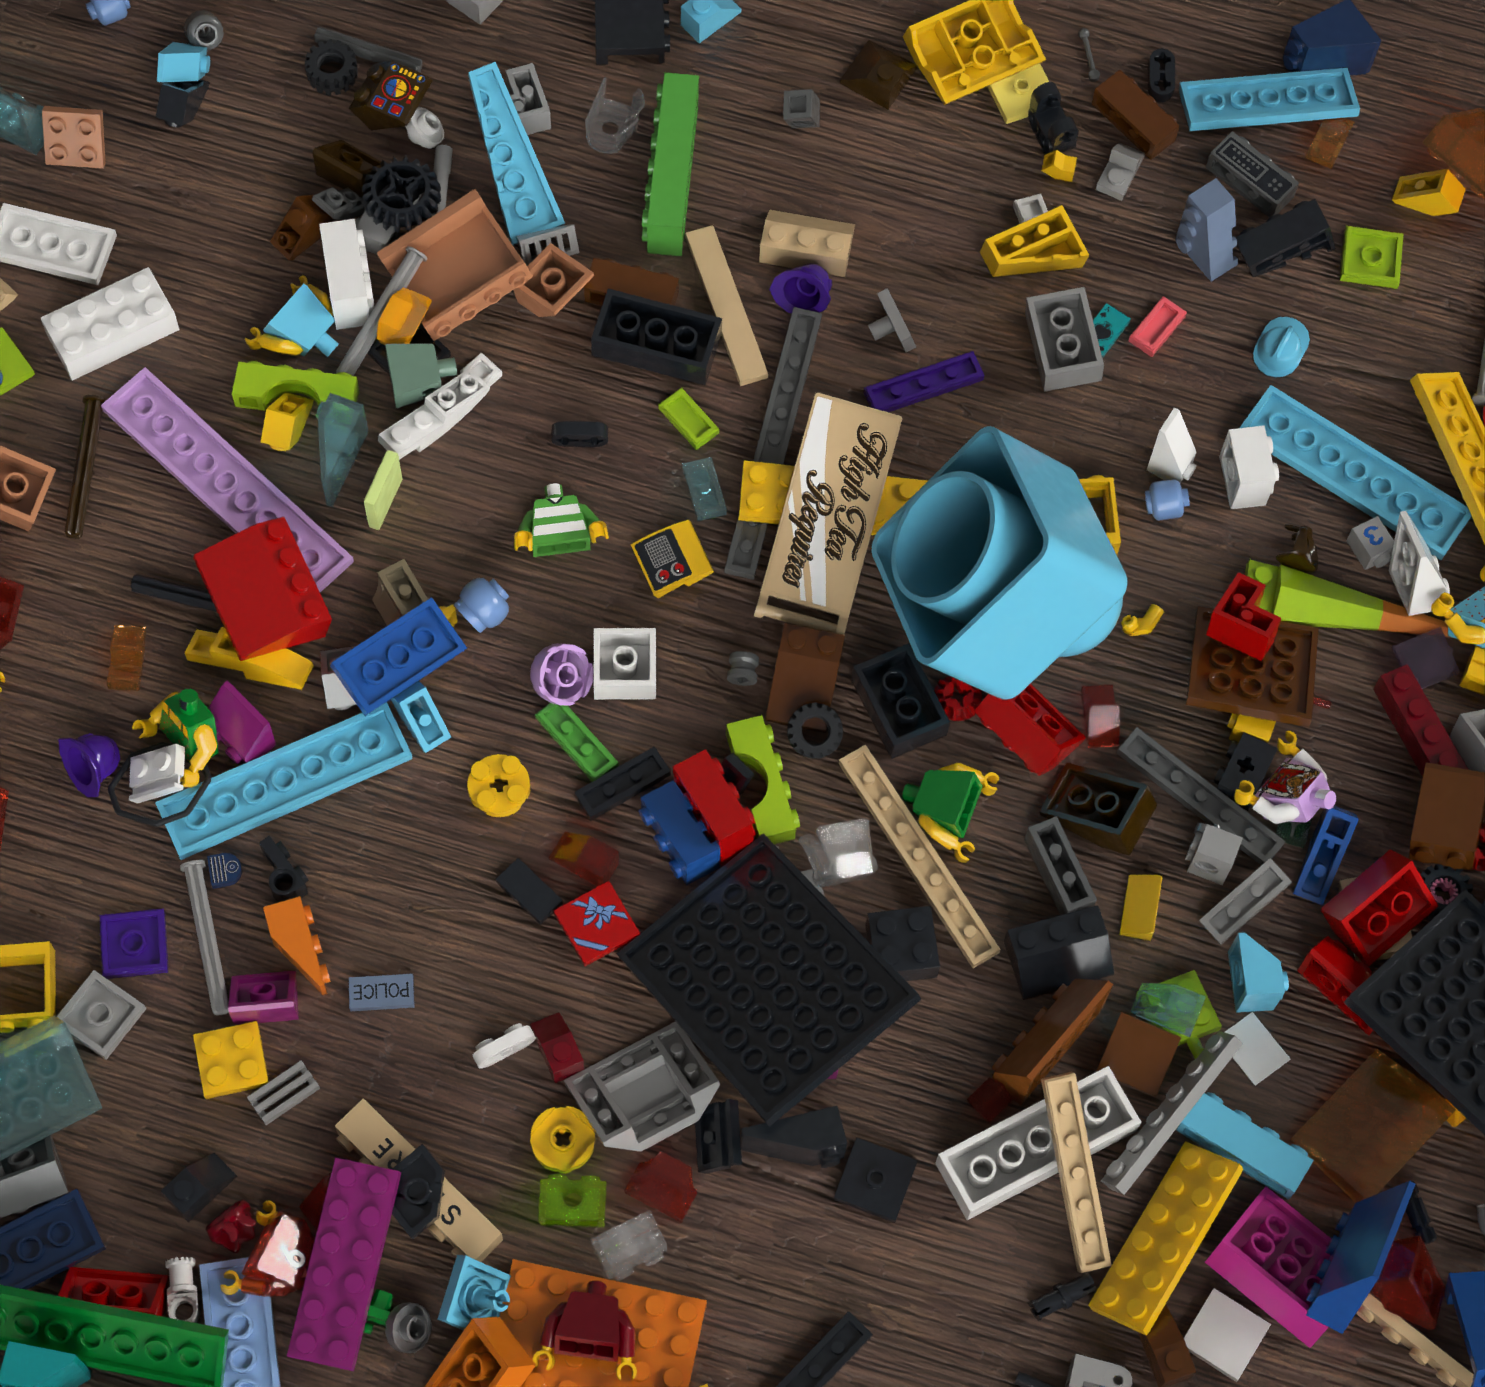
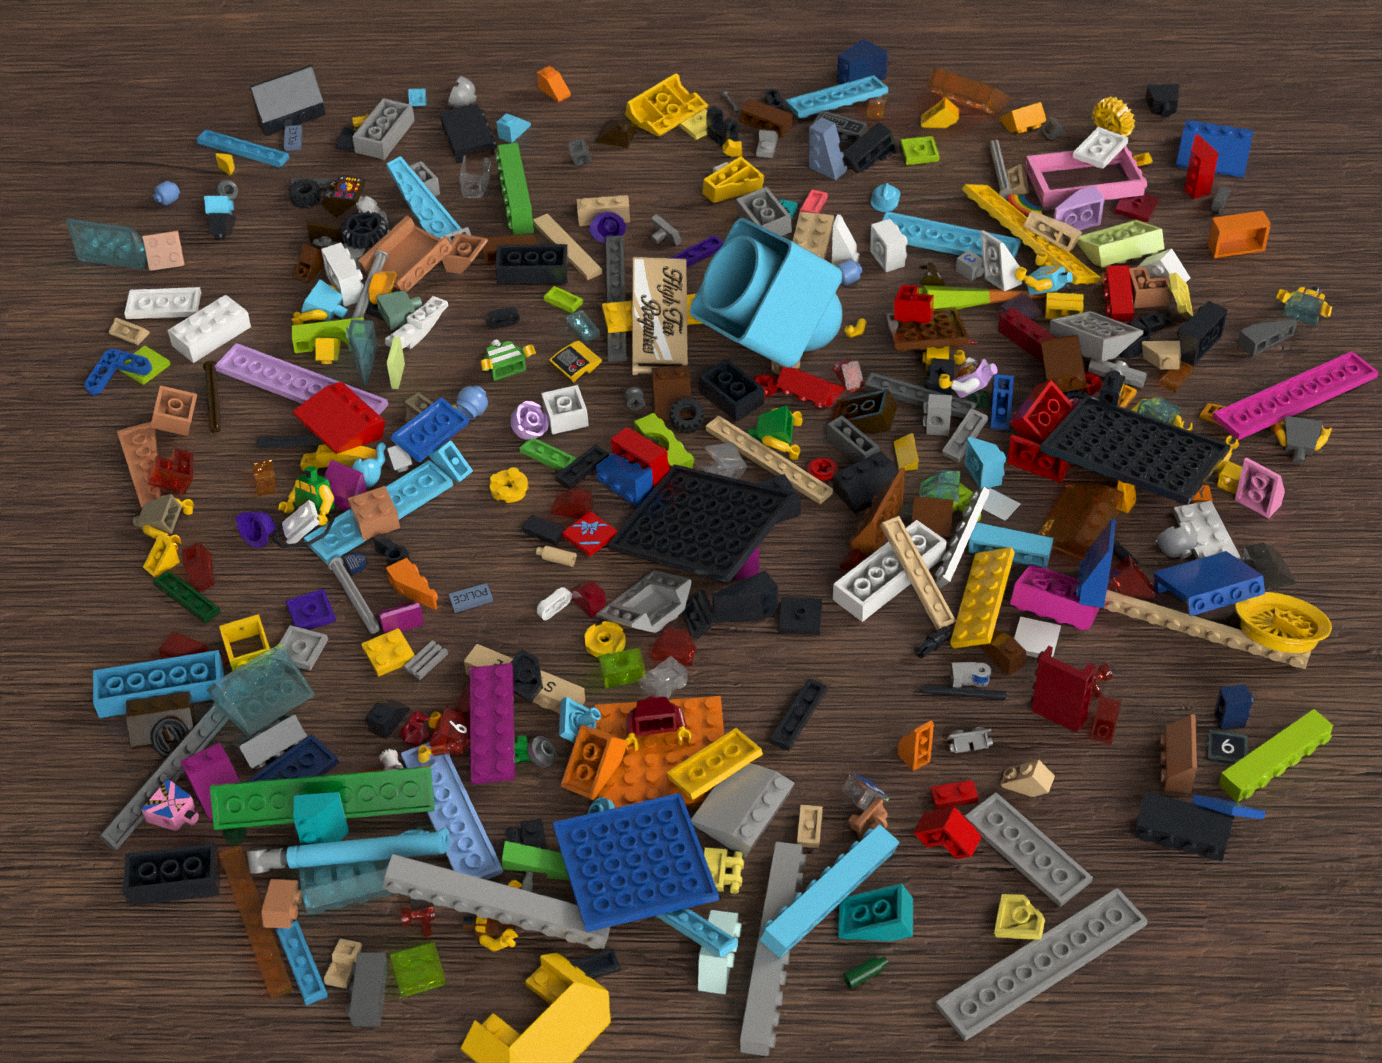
camera: 10 degrees left, 20 degrees down
(270, 795) = (374, 513): none -> nougat brick
(286, 705) = (371, 467): none -> medium azure piece
(534, 950) = (557, 555): none -> tan cylinder
(1005, 889) = (824, 464): none -> red gear
(1130, 403) = (814, 232): none -> tan plate

